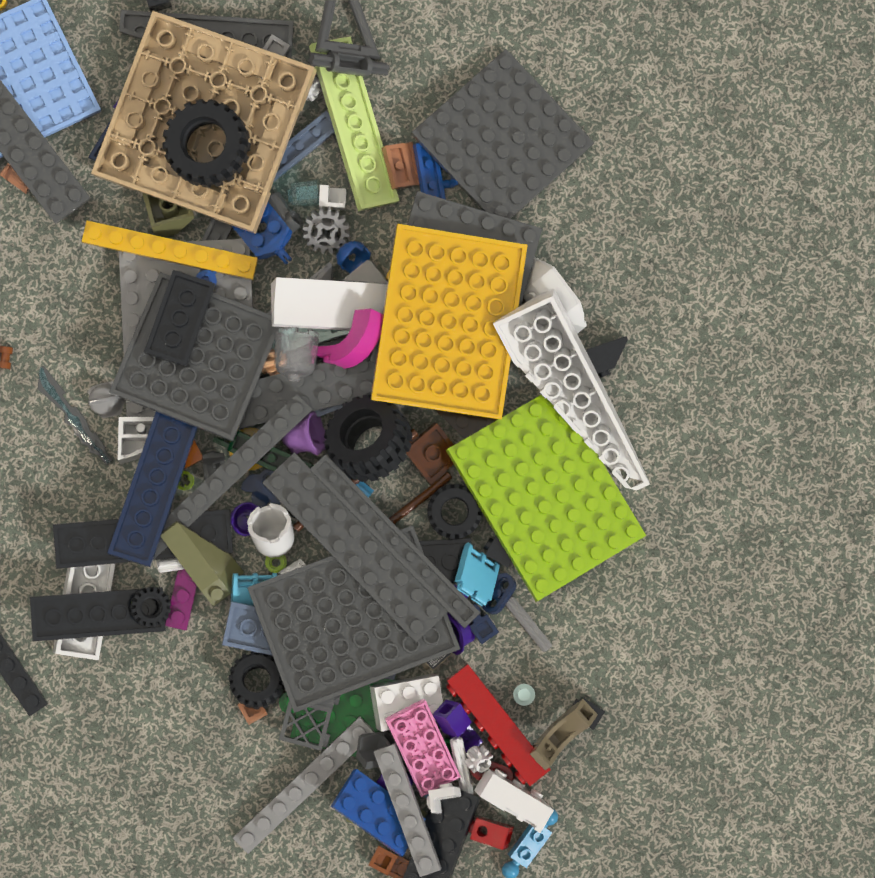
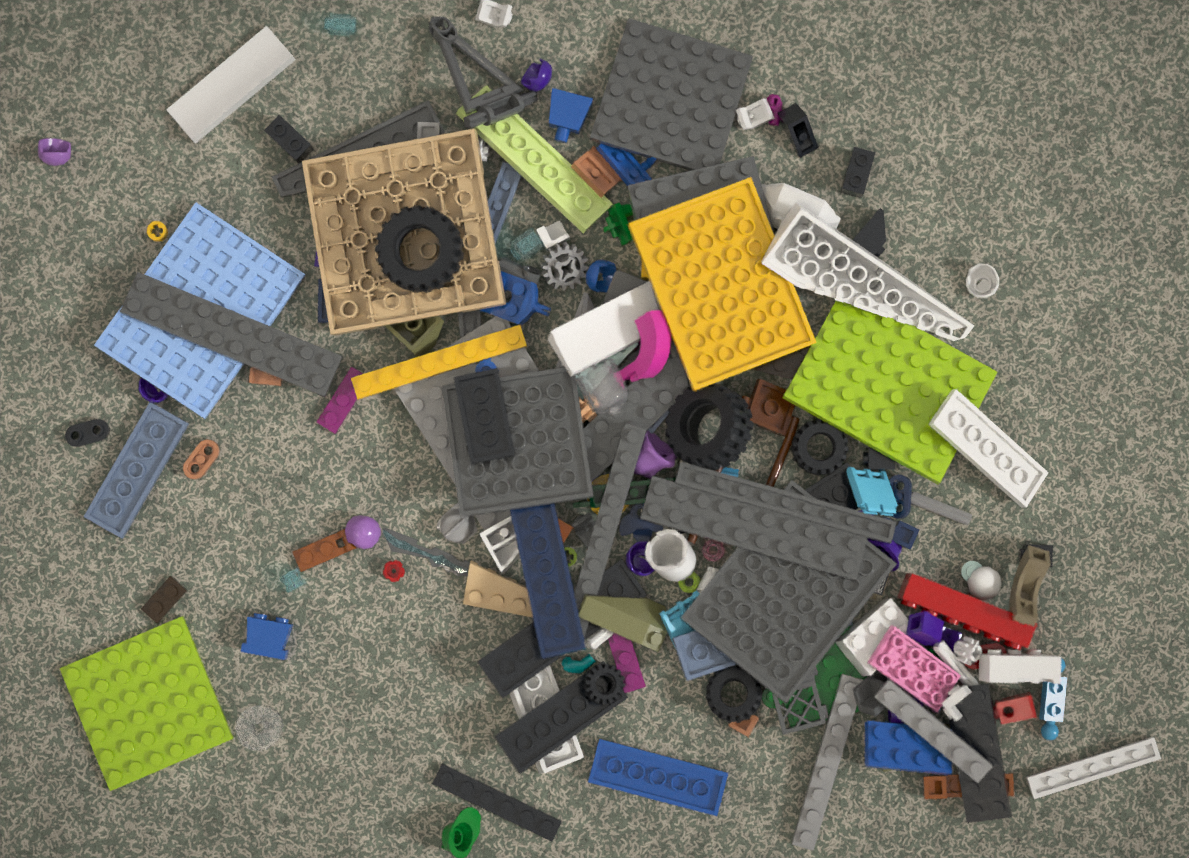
camera: 25 degrees left, 0 degrees up
(22, 358) = (362, 531): none -> medium lavender hair
(23, 406) = (394, 577): none -> red plate
(66, 238) = (340, 403): none -> magenta plate
(103, 473) = (495, 592): none -> tan wing
(137, 579) = (575, 666): none -> teal arm
(151, 714) = (658, 777): none -> blue plate
(304, 547) = (705, 550): none -> clear pink plate
(393, 217) = (618, 223): none -> green hips
(398, 54) = (537, 76): none -> dark purple hair
(405, 101) = (568, 113): none -> blue torso
(528, 710) = (984, 583): none -> white hair
(565, 194) = (754, 114): none -> white bracket
(588, 197) = (776, 106): none -> magenta arm
(595, 228) = (798, 129): none -> black slope
(597, 596) = (988, 448): none -> white plate
(625, 294) = (857, 172): none -> black brick
(681, 456) = (989, 282): none -> white hair

